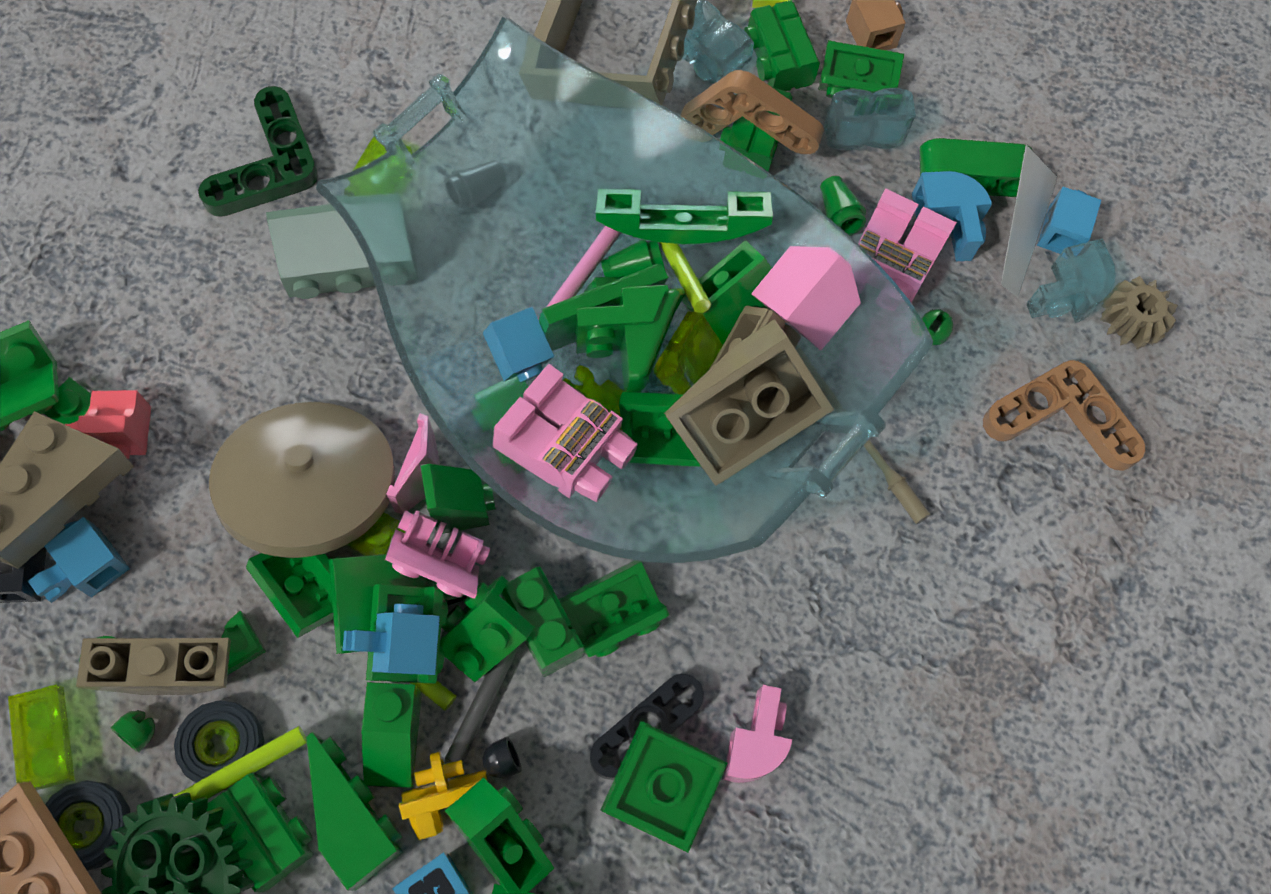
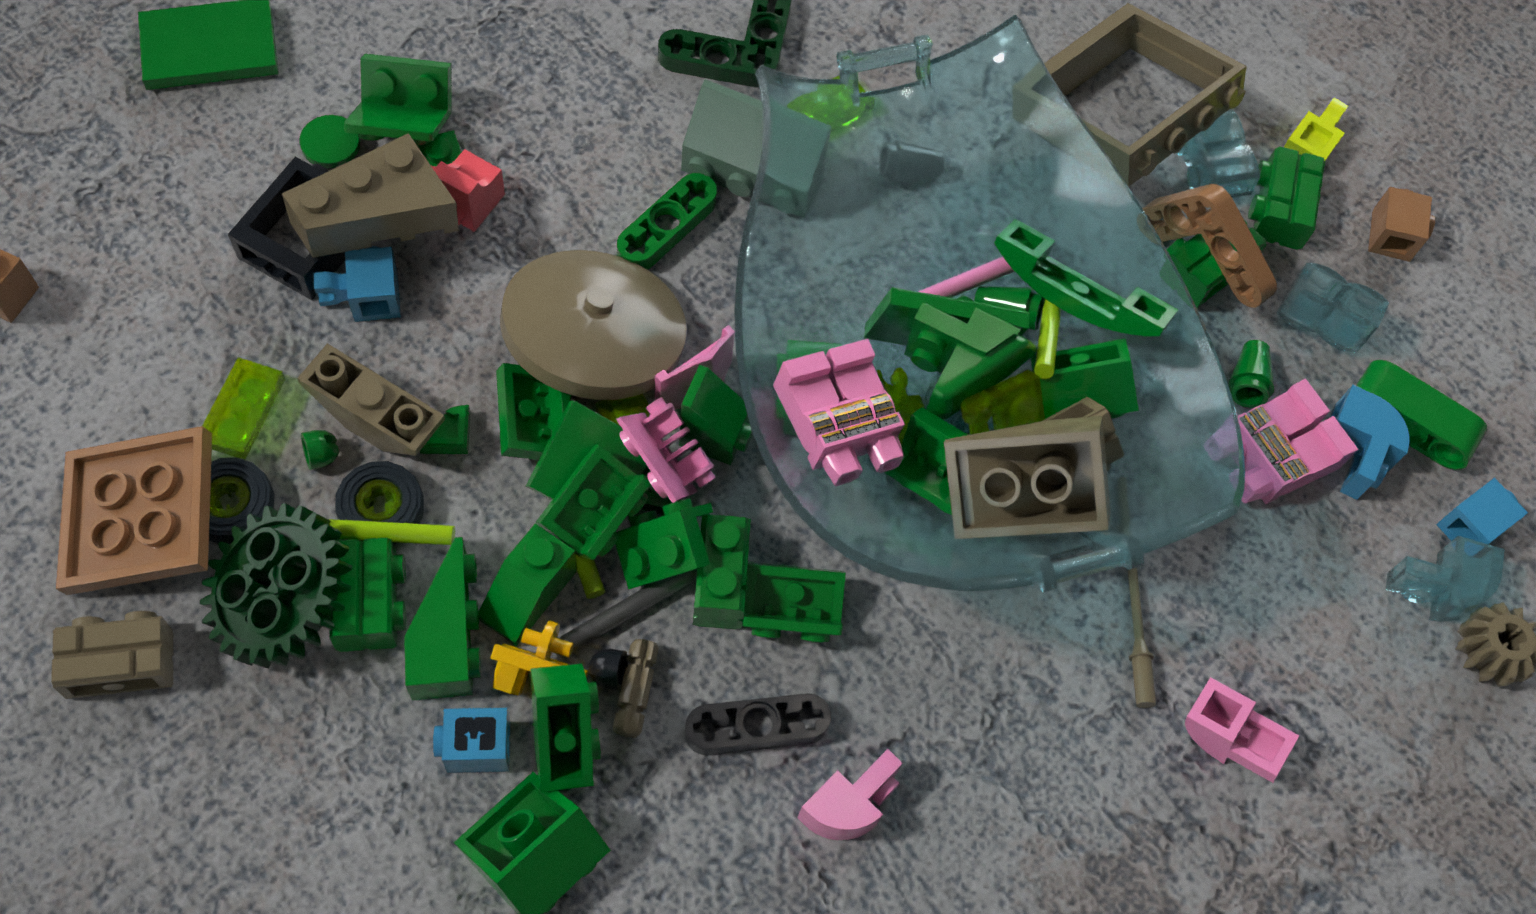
camera: 30 degrees right, 5 degrees down
(302, 332) = (673, 204): none -> green beam
(402, 641) = (586, 504): dark azure brick -> none
(518, 345) = (852, 310): dark azure brick -> none
(533, 761) = (635, 688): none -> dark tan axle
(664, 786) = (738, 784): green tile -> none
(811, 292) = (1156, 416): bright pink slope -> none
(858, 68) = (1355, 256): green bracket -> none
(945, 328) = (1280, 546): green hinge -> none
(994, 498) = (1230, 728): none -> bright pink brick
(1031, 205) = (1446, 483): white sticker -> none
(1065, 397) = (1369, 681): medium nougat beam -> none

